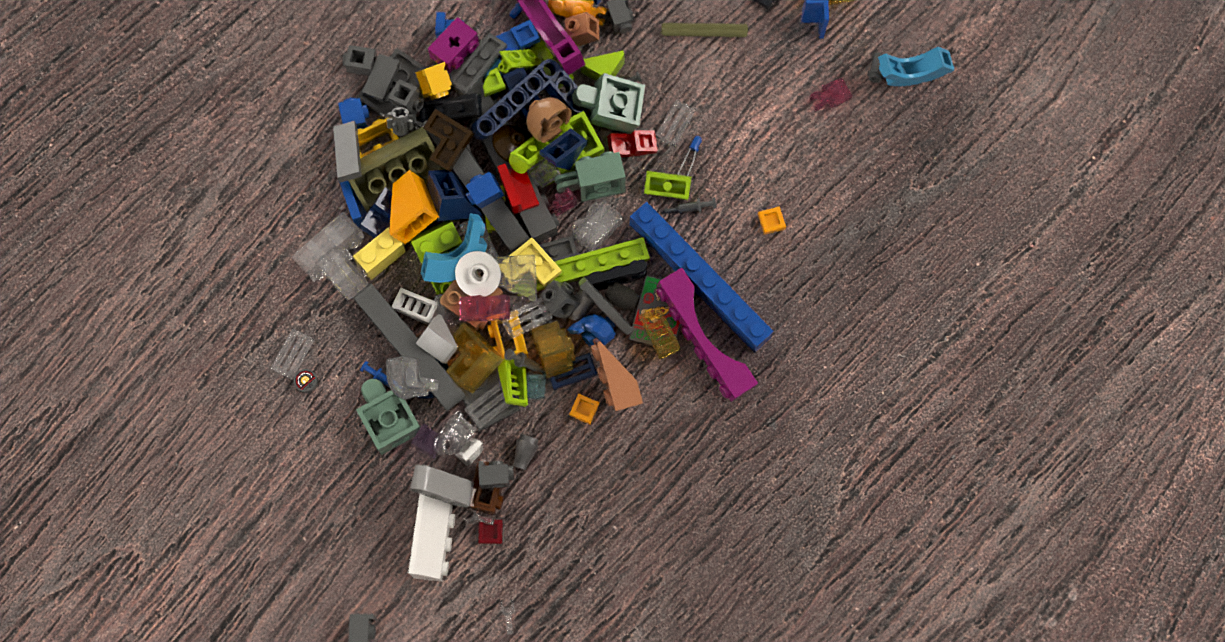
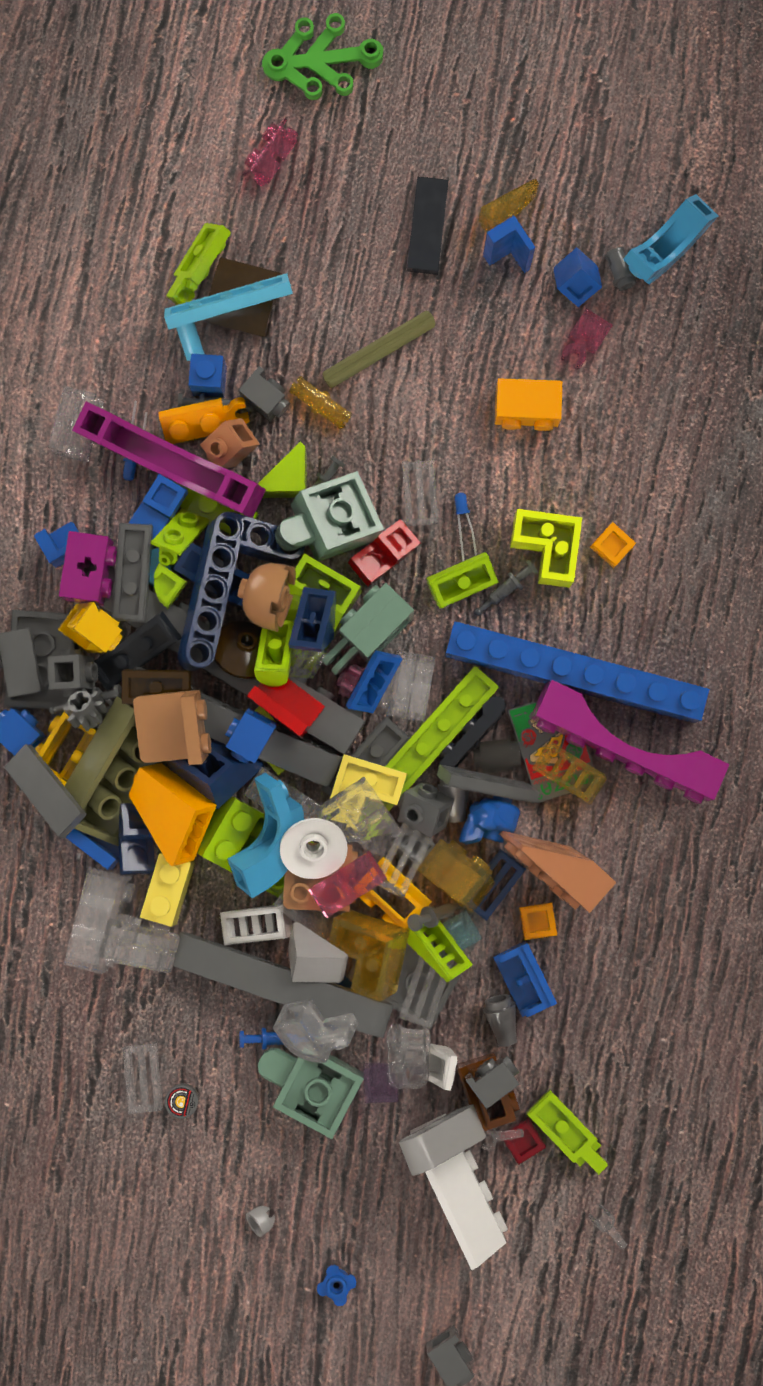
camera: 30 degrees left, 10 degrees up
(304, 477) = (259, 1220): none -> light grey hinge
(327, 549) = (334, 1275): none -> blue plate
(442, 155) = (172, 727): none -> medium nougat bracket
(520, 541) = (567, 1131): none -> lime hinge
(554, 436) = (524, 979): none -> blue hinge
(576, 207) = (374, 681): none -> blue slope
(650, 39) = (320, 402): none -> clear yellow pin
(737, 193) = (555, 537): none -> neon yellow brick
(772, 109) = (528, 403): none -> light orange brick
(848, 57) = (577, 277): none -> blue panel

